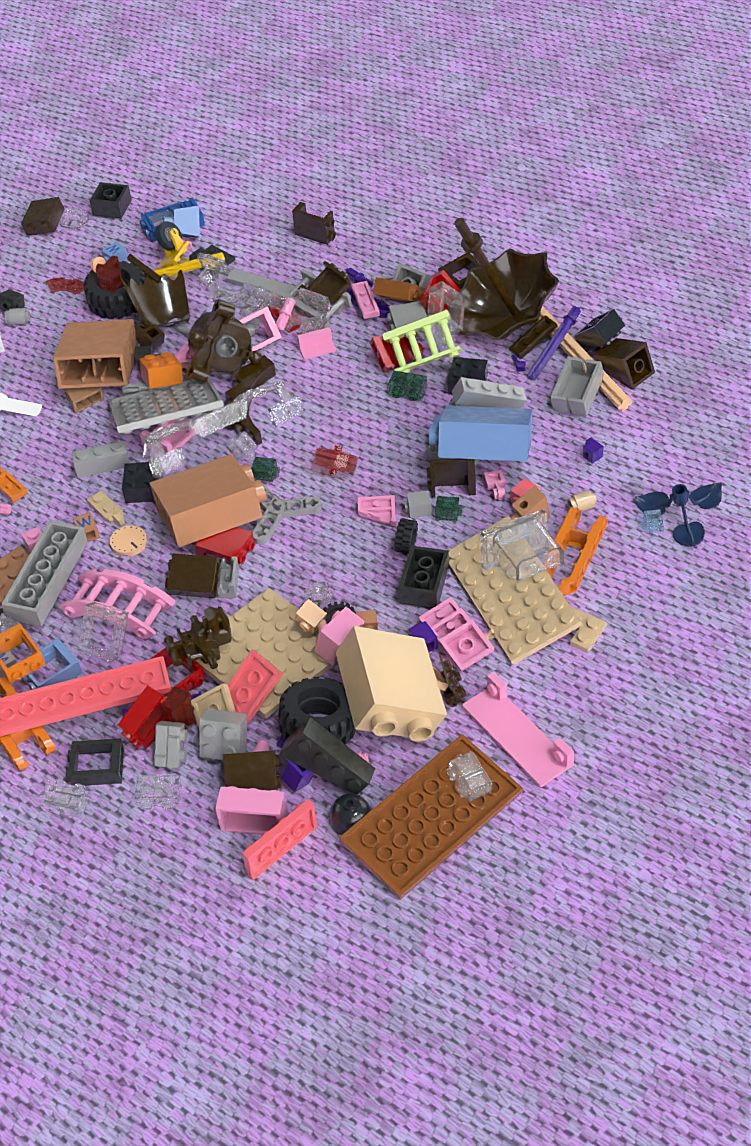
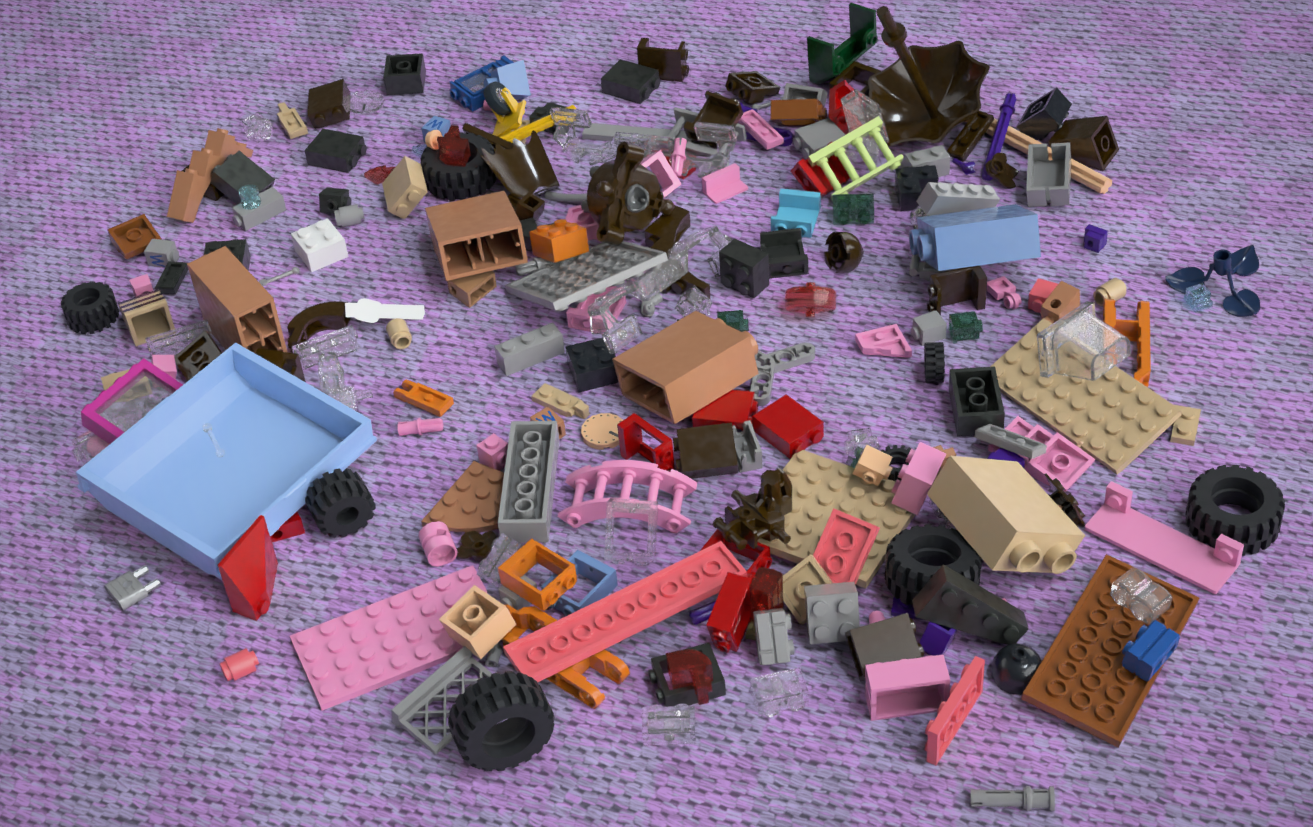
camera: 15 degrees left, 5 degrees down
(10, 226) = (291, 121): none -> tan hinge
(10, 425) = (399, 333): none -> tan brick
(31, 257) = (335, 150): none -> pearl dark grey brick
(65, 301) = (404, 187): none -> tan brick
(92, 759) = (691, 668): none -> clear red brick
(143, 554) = (631, 442): none -> red panel
(210, 439) = (648, 308): none -> light grey arm
(268, 567) = (788, 426): none -> red brick
(283, 237) = (630, 81): none -> pearl dark grey brick
(293, 422) = (744, 268): none -> pearl dark grey brick
(306, 924) = (1025, 798): none -> light grey pin
(335, 414) = (784, 253): none -> pearl dark grey panel
(362, 381) = (797, 210): none -> medium azure panel
(376, 259) = (750, 86): none -> dark brown plate
(382, 420) = (843, 247): none -> dark brown cylinder
(432, 618) = (1010, 441): none -> light grey tile
(441, 254) = (827, 62): none -> dark green windscreen
(455, 824) = (1150, 649): none -> blue brick
(492, 352) = (933, 156): none -> light grey slope
(546, 374) = (1000, 170): none -> dark brown plate
(587, 696) = (1240, 488): none -> black tyre

